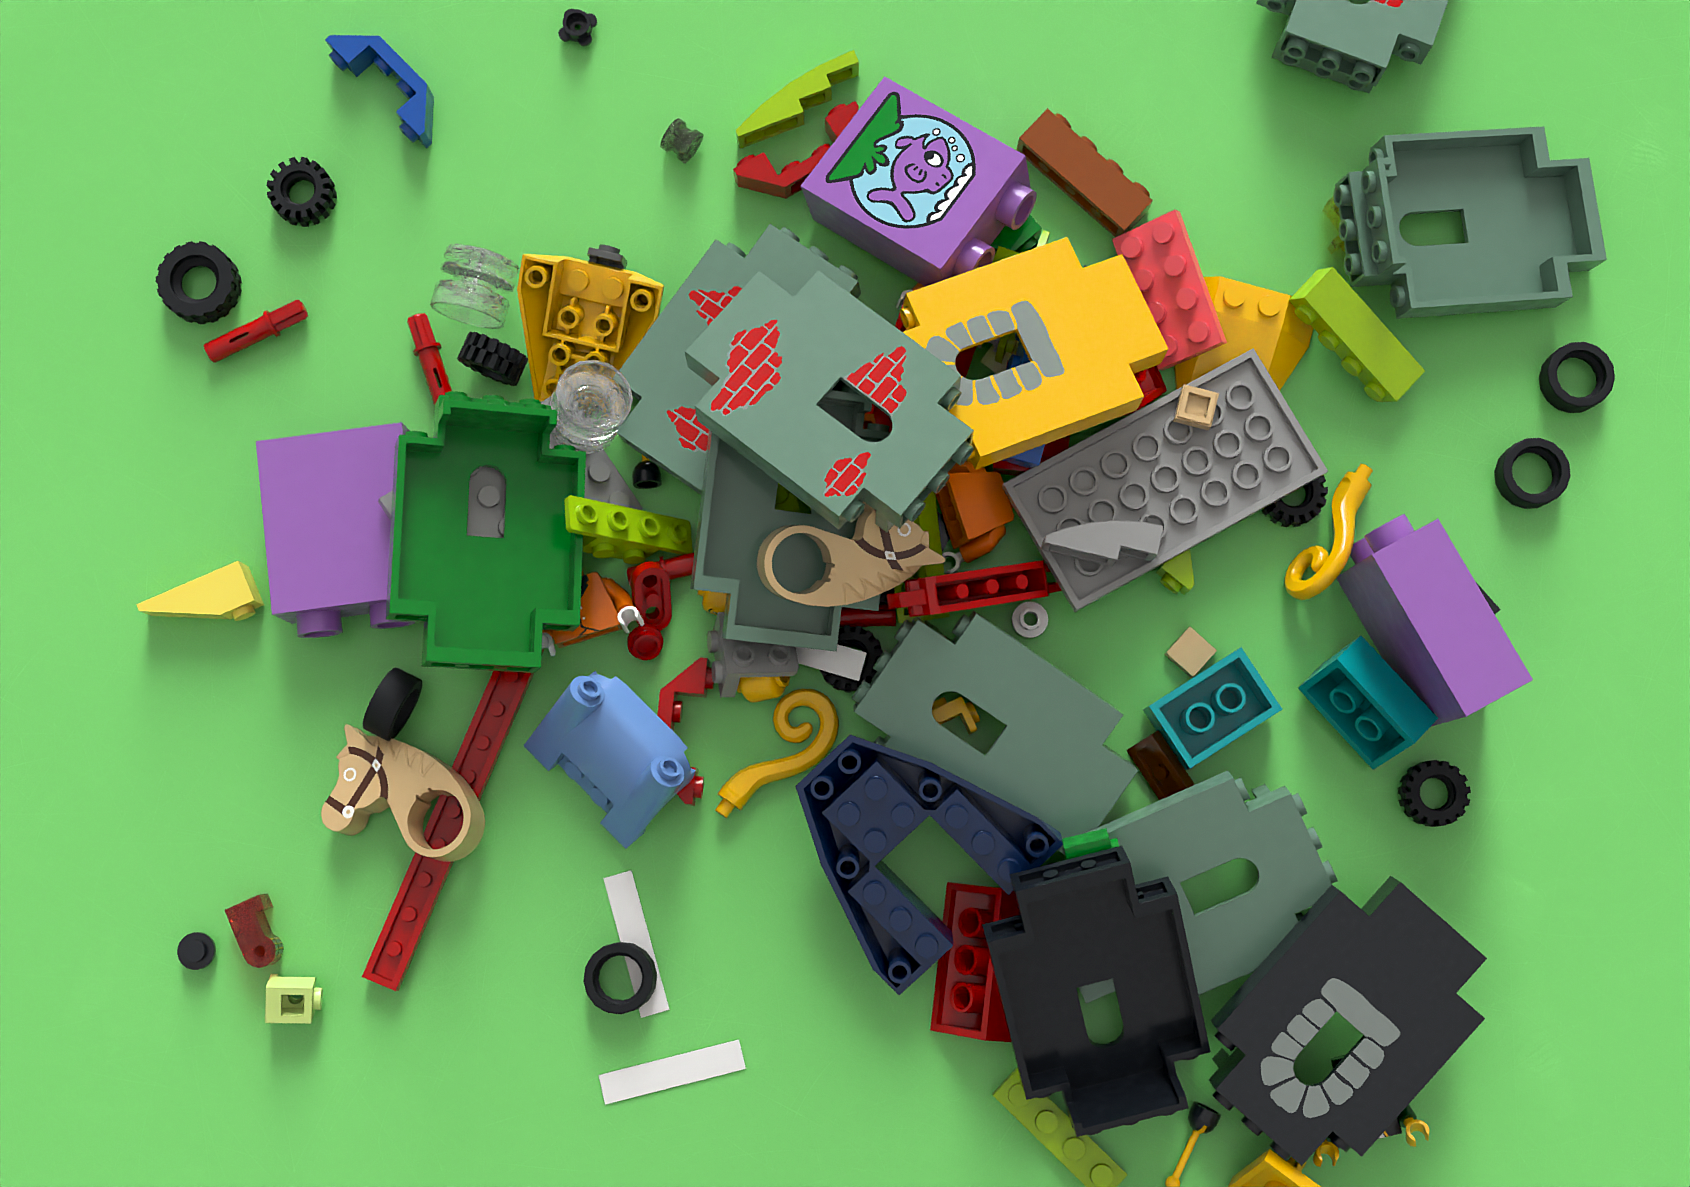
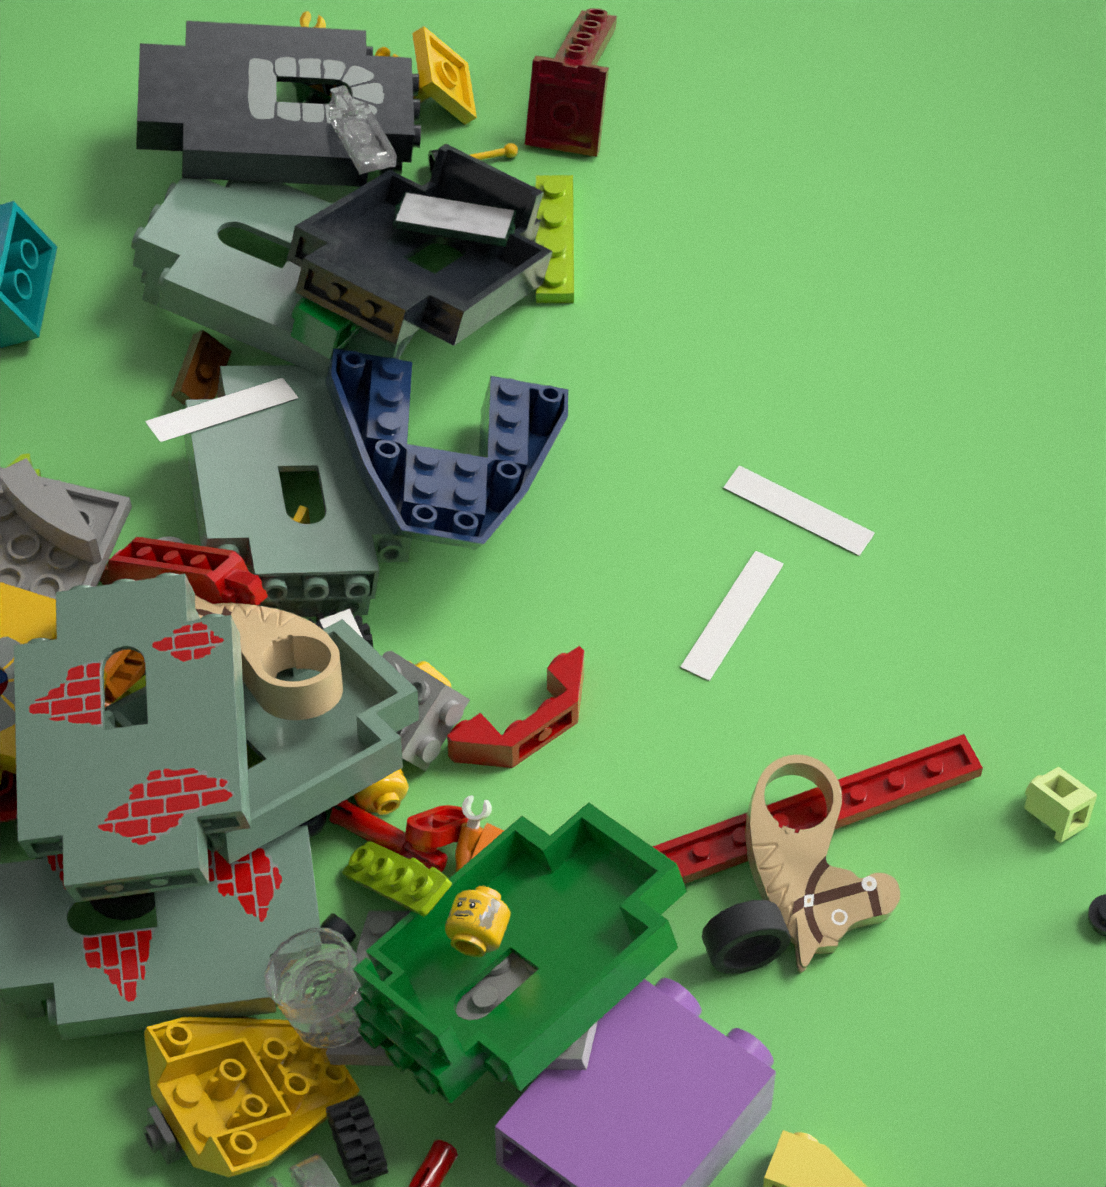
camera: 135 degrees left, 25 degrees down
(253, 931) = (1047, 874): clear red leg -> none
(518, 514) = (477, 921): none -> yellow head
(592, 983) = (774, 566): black tyre -> none
(613, 752) = (600, 726): medium blue piece -> none
(645, 642) = (494, 798): red plate -> none
(748, 780) = (517, 639): yellow plant -> none
(965, 985) = (454, 381): red slope -> none
(1092, 732) = (221, 409): none -> white sticker
(1114, 1051) = (454, 219): none -> flat silver piece
(1190, 652) = (81, 432): tan tile -> none
(1213, 709) = (114, 371): teal brick -> none
(1242, 1039) = (360, 132): none -> clear hinge
(1455, 786) = (42, 185): black tyre -> none

